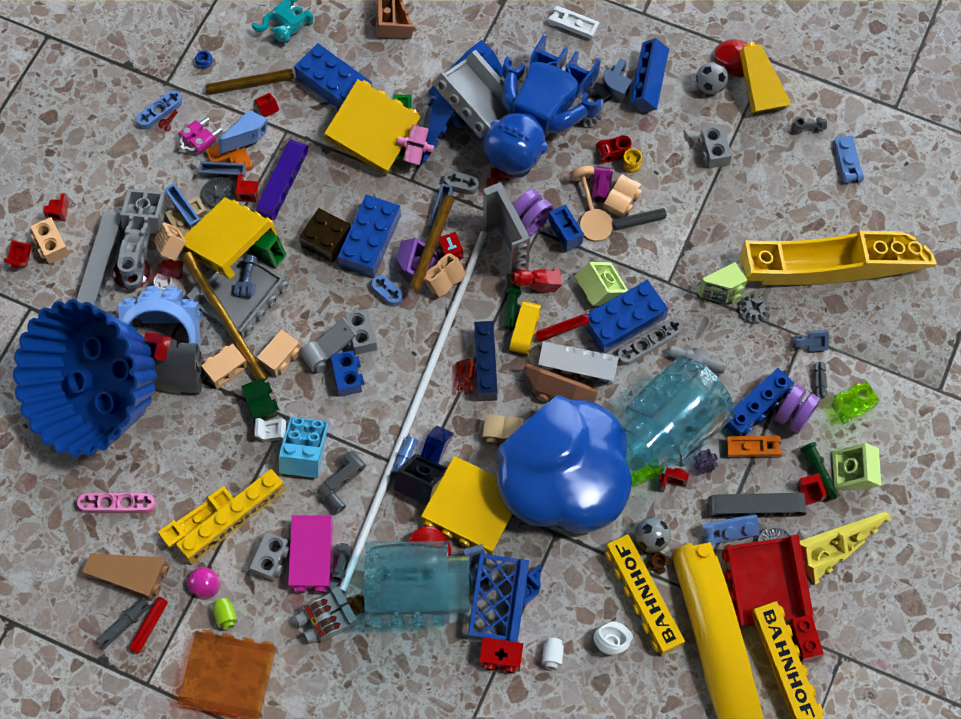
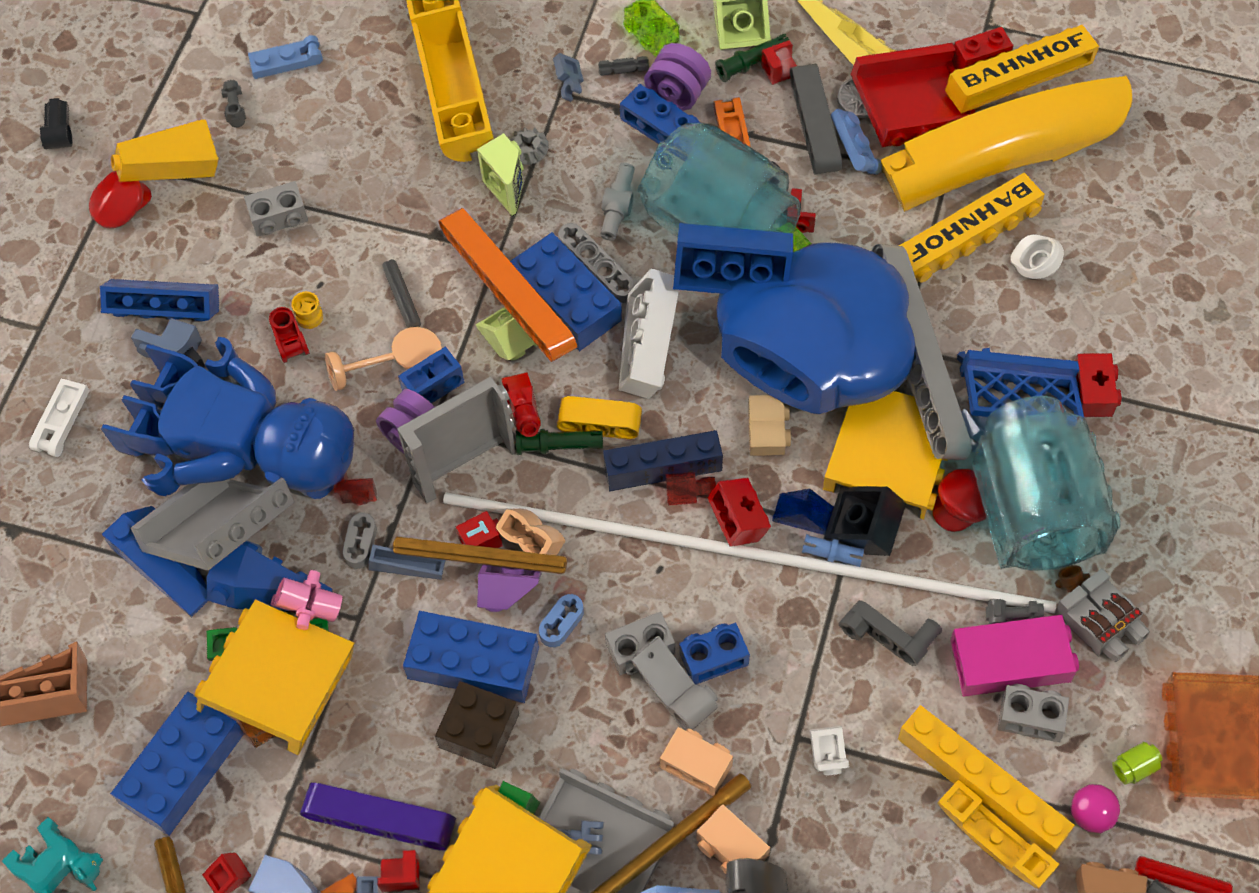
camera: 95 degrees left, 5 degrees down
(259, 399) = (783, 776): dark green brick -> none
(303, 447) = (846, 694): medium azure slope -> none
(448, 394) = (739, 511): none -> red brick
(518, 531) = (928, 374): none -> light grey beam
(548, 385) = (690, 365): nougat wedge -> none
(552, 653) = (1076, 325): white brick -> none
(562, 327) = (596, 362): red axle -> none
(602, 180) = (348, 345): magenta piece -> none
(614, 398) = (715, 255): none -> blue brick
(622, 196) = (368, 316): light nougat brick -> none
(625, 273) = (508, 285): none -> orange beam
(653, 534) = (886, 222): light grey piece -> none
(665, 559) = (916, 214): reddish brown plate -> none
(712, 78) = (163, 218): light grey piece -> none
(793, 19) = (56, 128): none -> black piece

